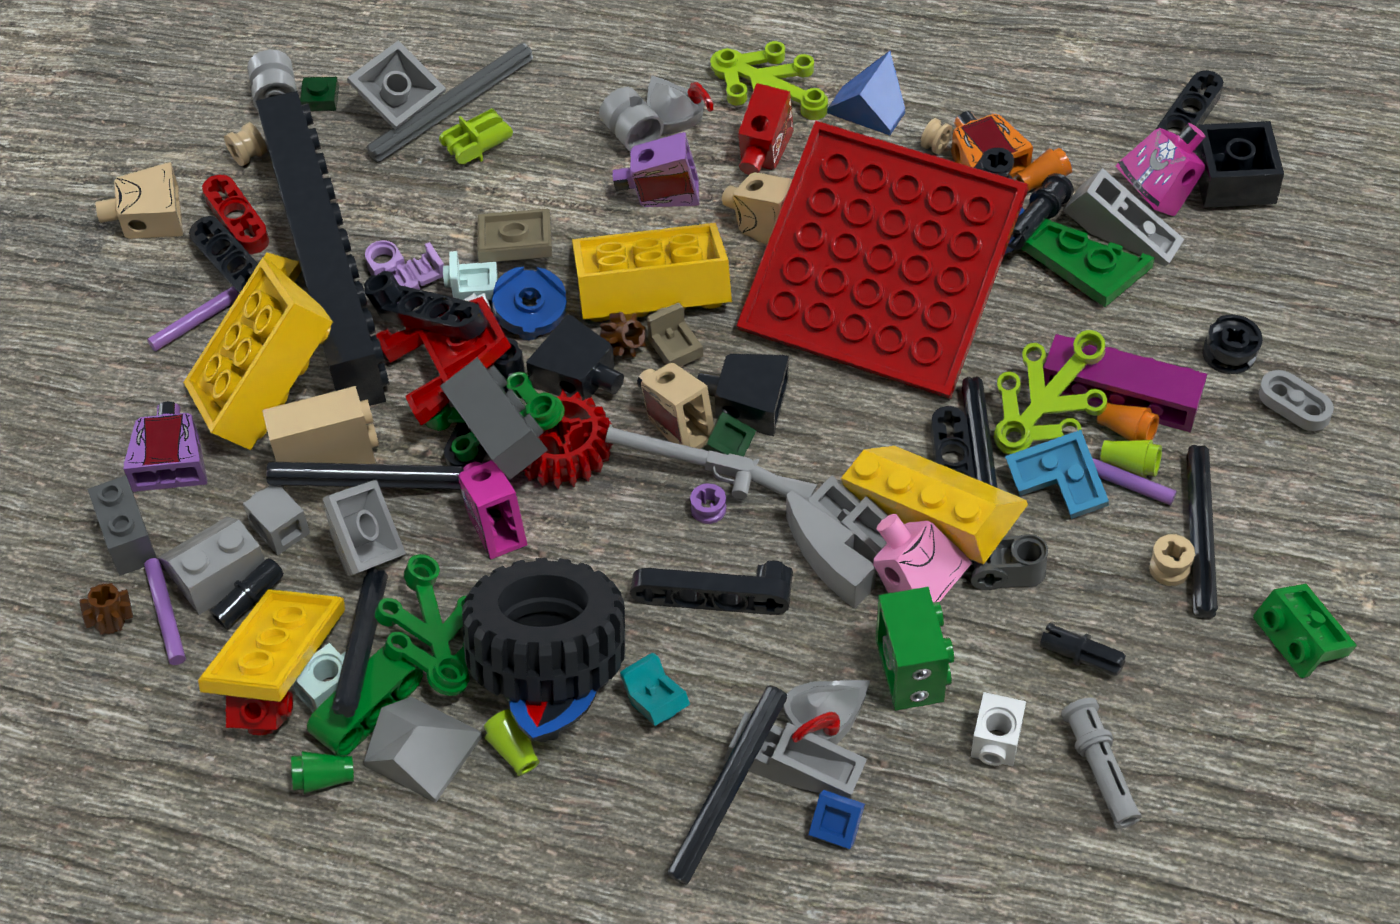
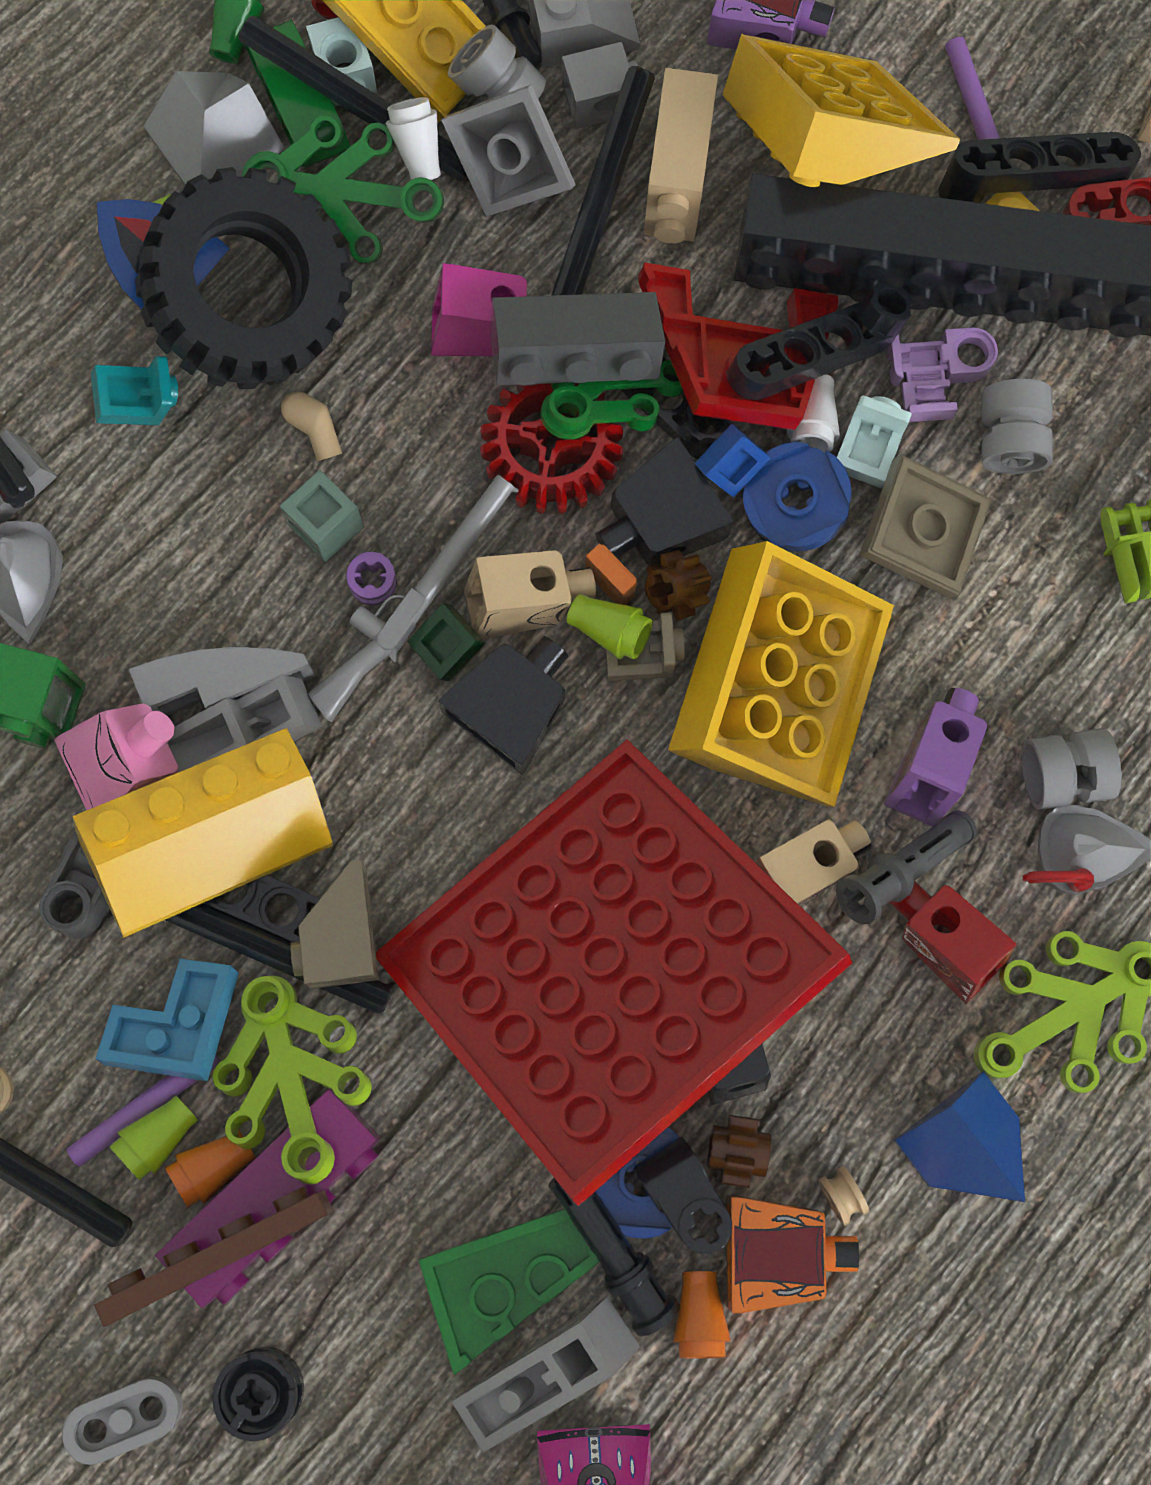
camera: 110 degrees right, 25 degrees up
(303, 566) = (489, 69): none -> light grey wheel
(373, 584) = (416, 136): none -> white cone
(426, 212) = (1017, 420): none -> light grey wheel
(525, 331) = (732, 460): none -> blue plate
(622, 571) = (314, 420): none -> tan arm
(636, 363) = (611, 575): none -> orange tile
(672, 341) = (612, 625): none -> lime cone
(685, 531) = (322, 516): none -> sand green brick
(744, 161) = (892, 875): none -> dark grey pin
(759, 594) = (199, 577): black beam -> none
(948, 400) = (338, 934): none -> dark tan slope
(1176, 365) = (191, 1264): none -> reddish brown plate

